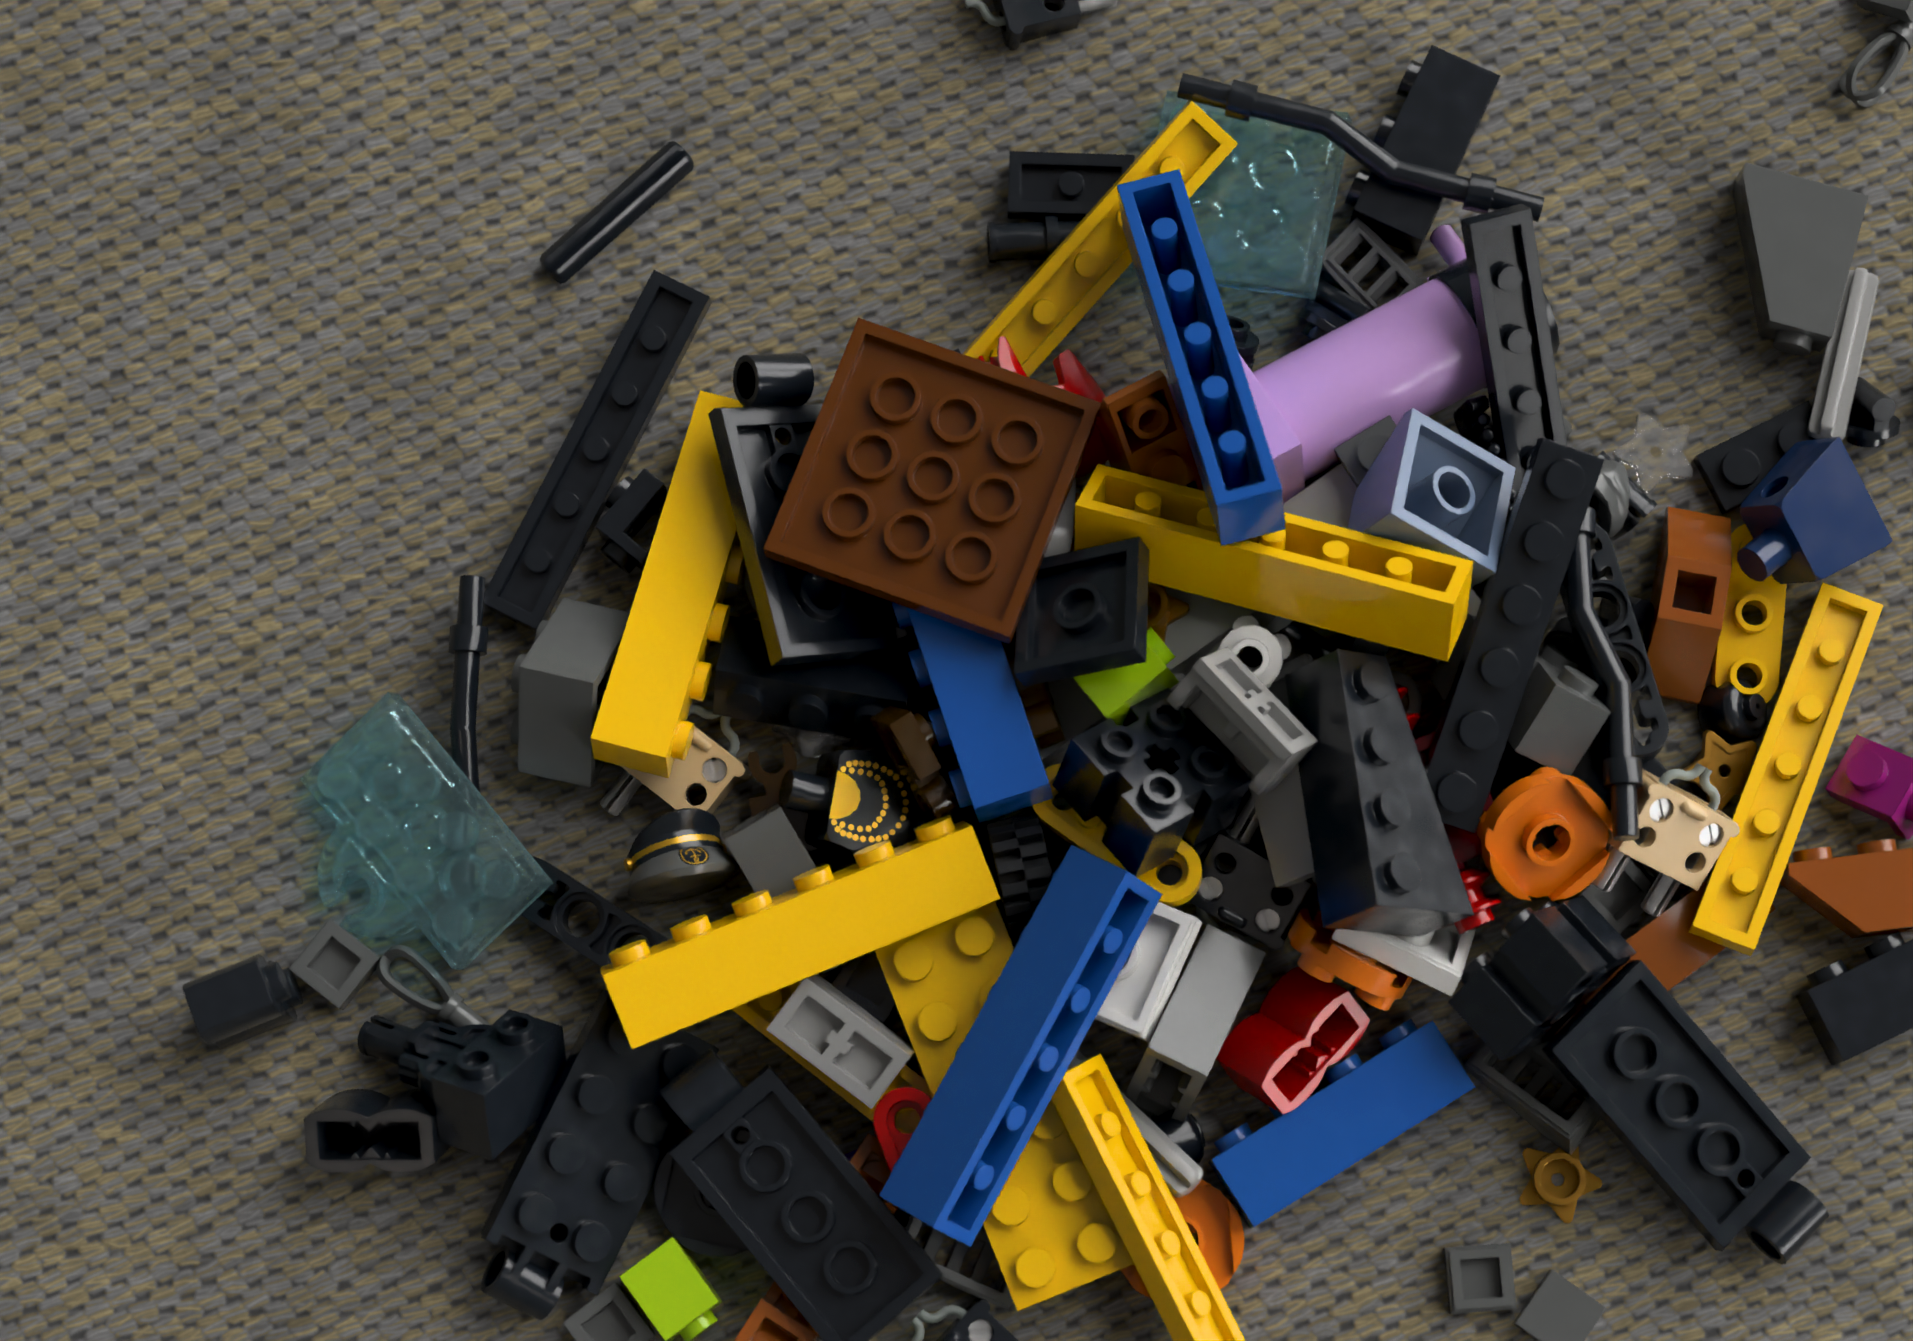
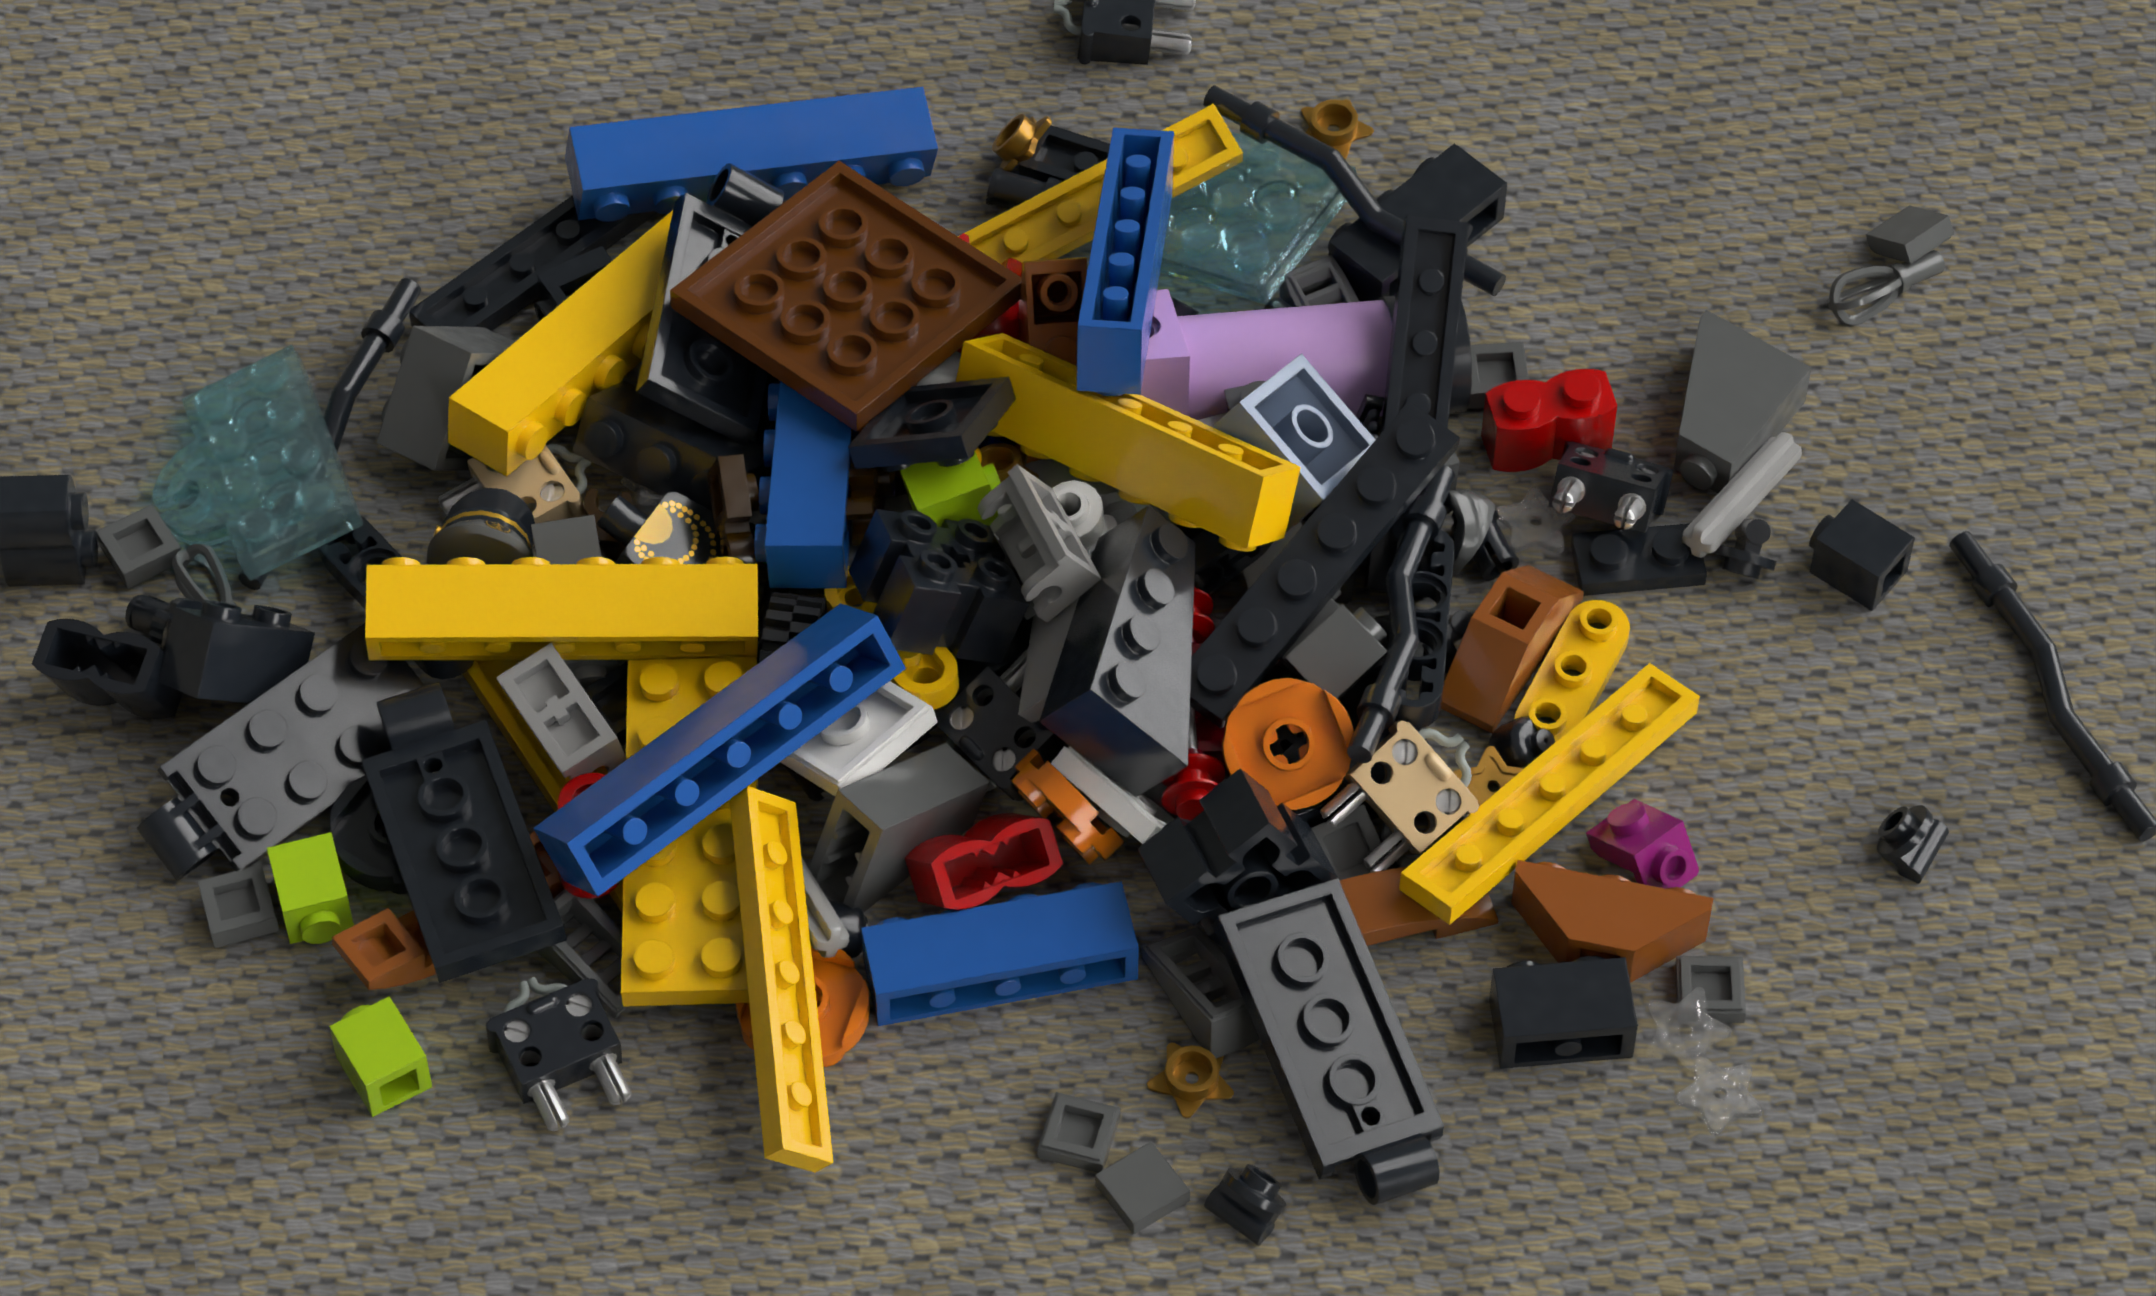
camera: 15 degrees right, 25 degrees down
(616, 212) = (674, 75): black axle -> none
(745, 302) = (788, 144): none -> blue brick
(997, 183) = (1019, 140): none -> pearl gold plate
(1289, 25) = (1340, 114): none -> pearl gold plate
(1569, 291) = (1493, 366): none -> dark grey plate
(1647, 332) = (1533, 419): none -> red brick
(1662, 1296) = (1247, 1202): none -> black plate
(1717, 399) = (1610, 486): none -> black piece
(1810, 516) = (1653, 596): dark blue torso -> none

